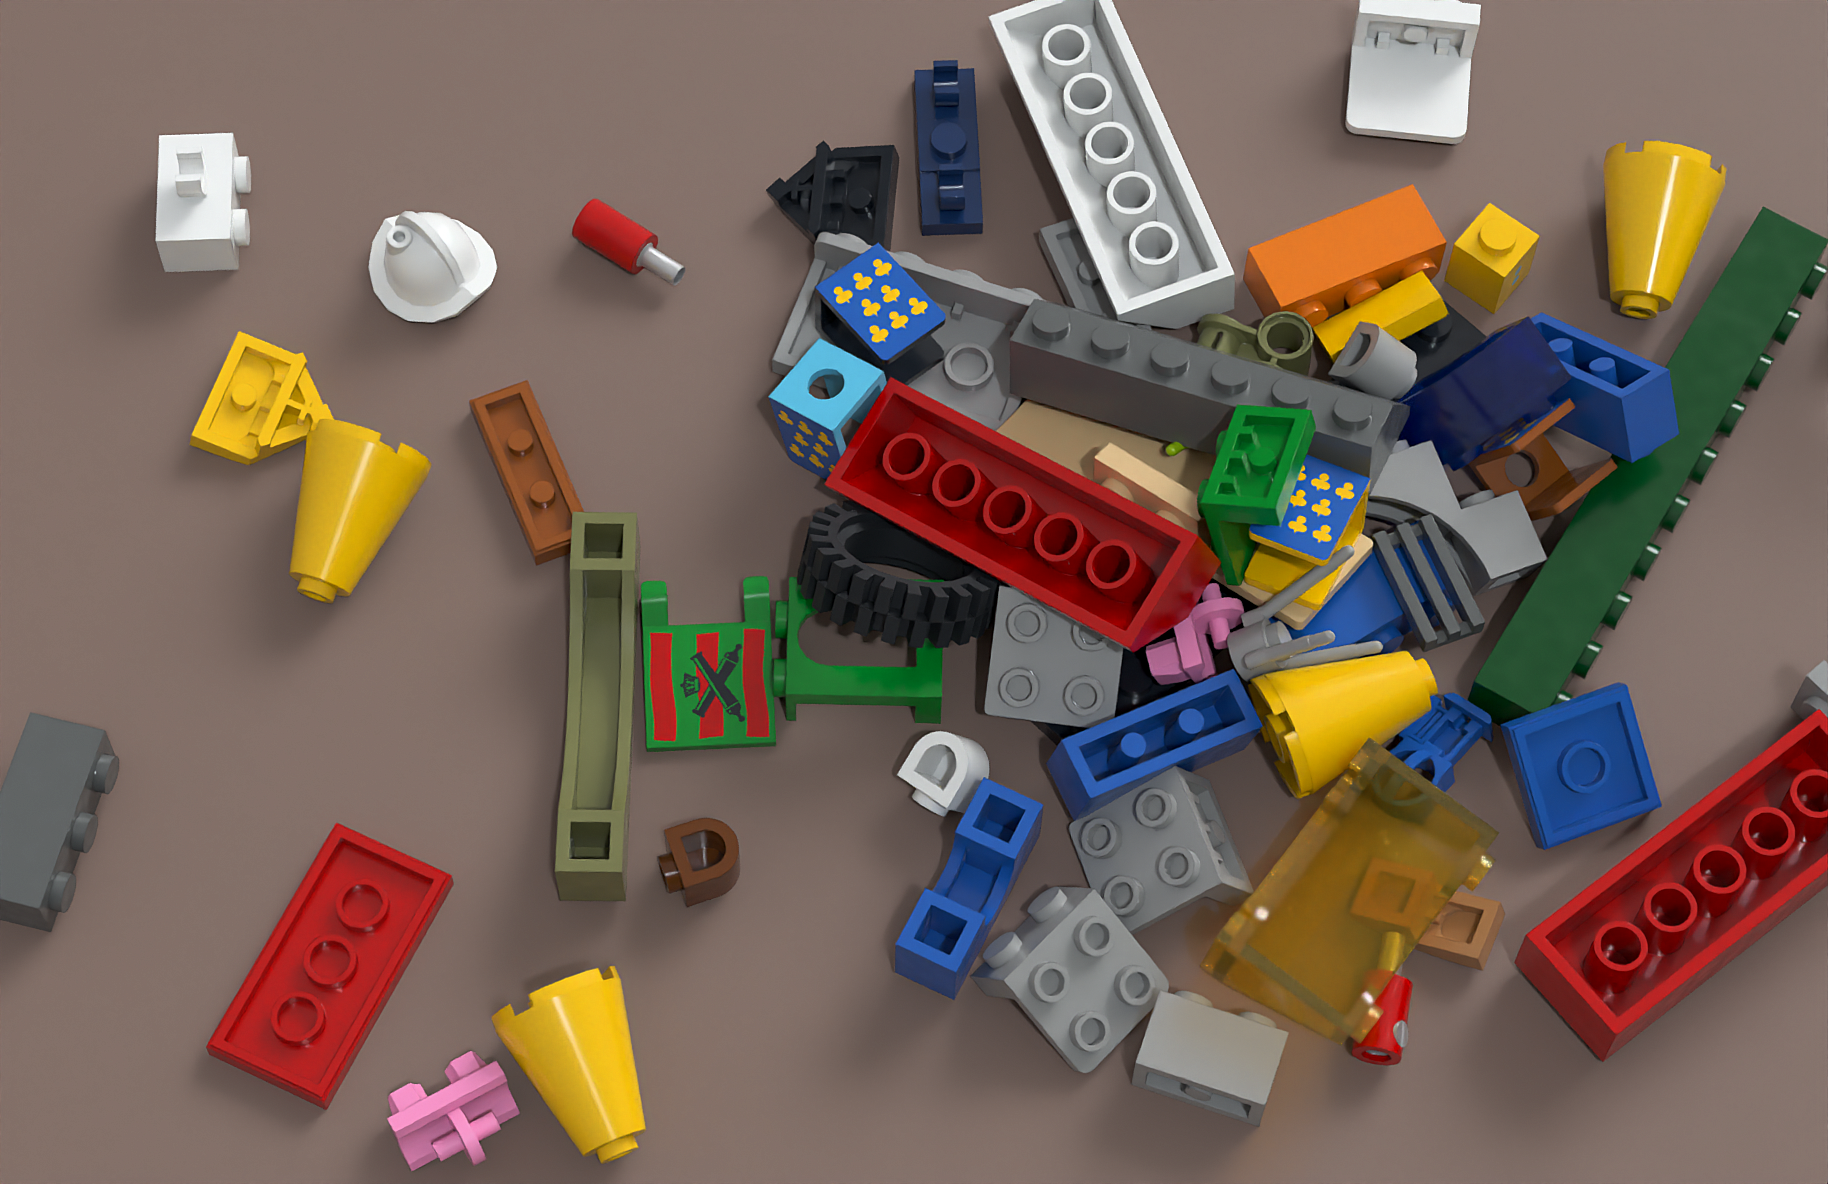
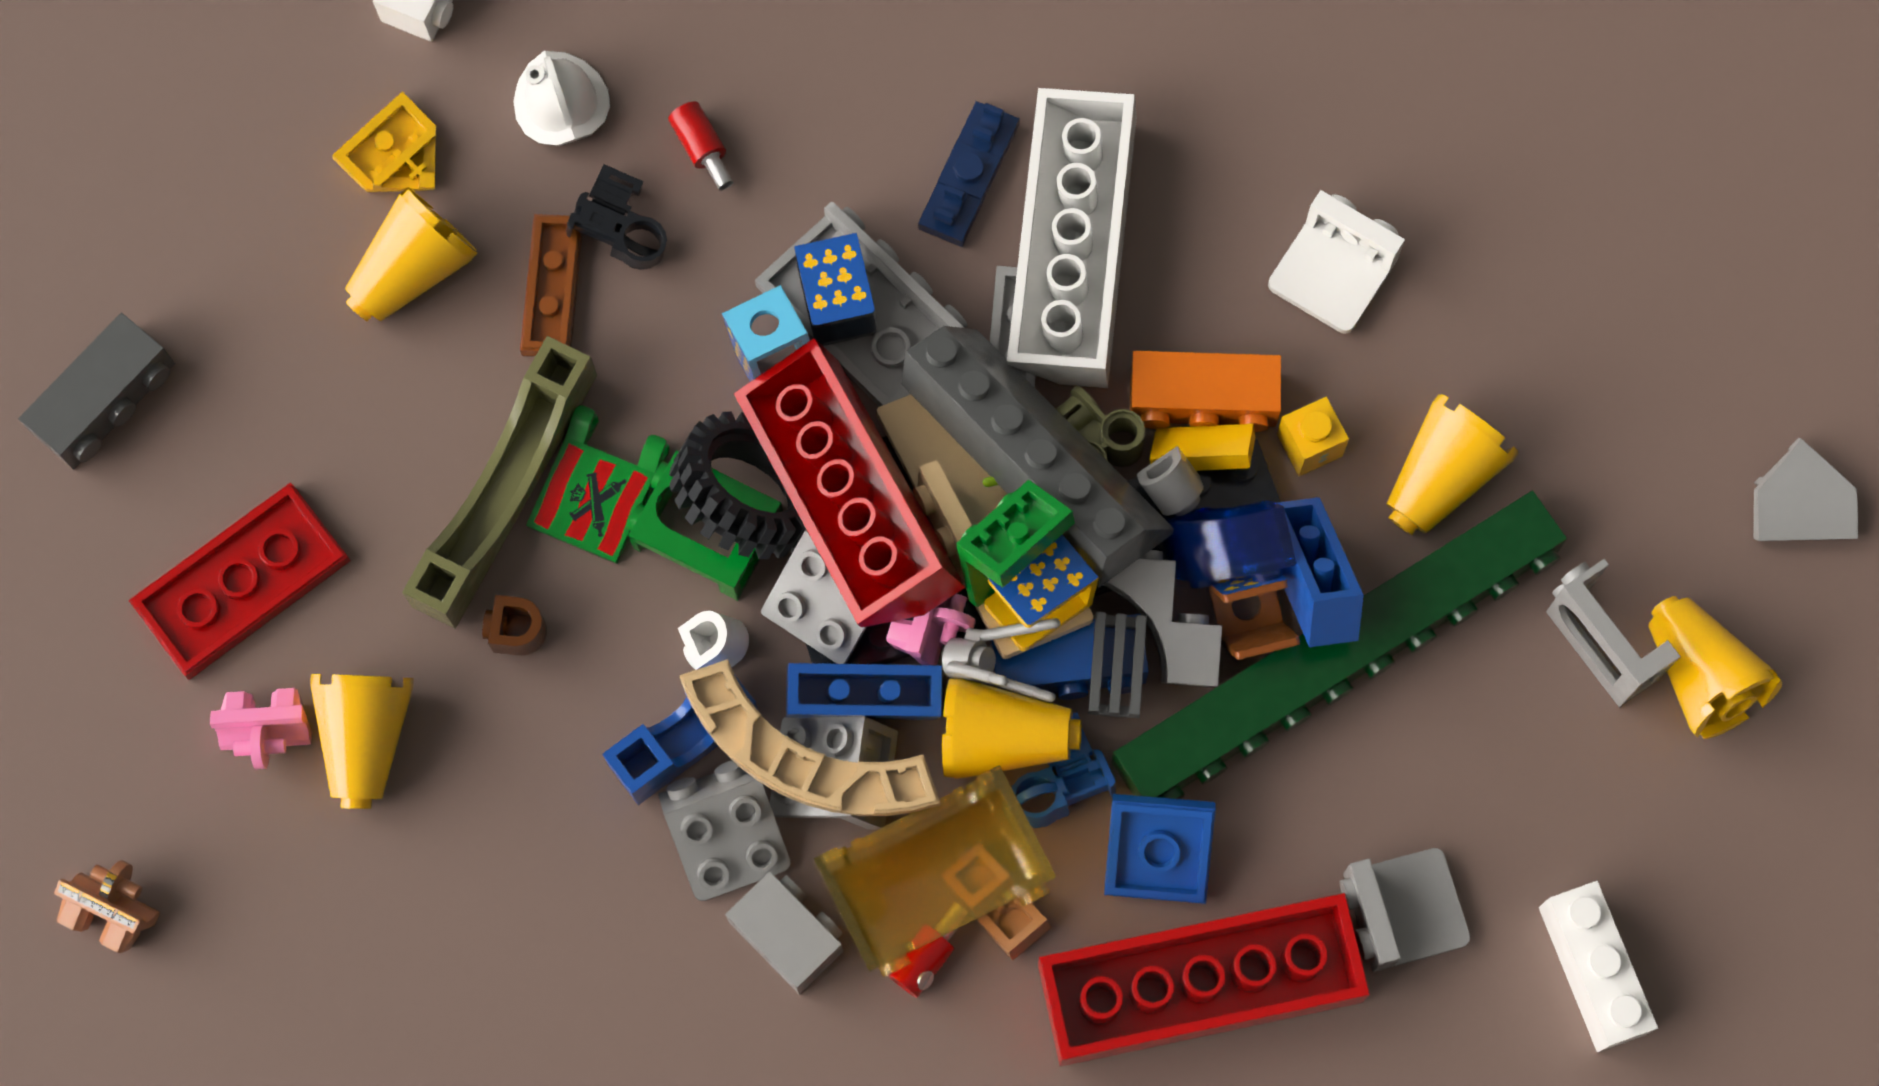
camera: 30 degrees right, 10 degrees up
(556, 363) = (607, 212): none -> black piece
(843, 193) = (875, 177): black slope -> none
(1129, 855) = (796, 769): none -> tan tile

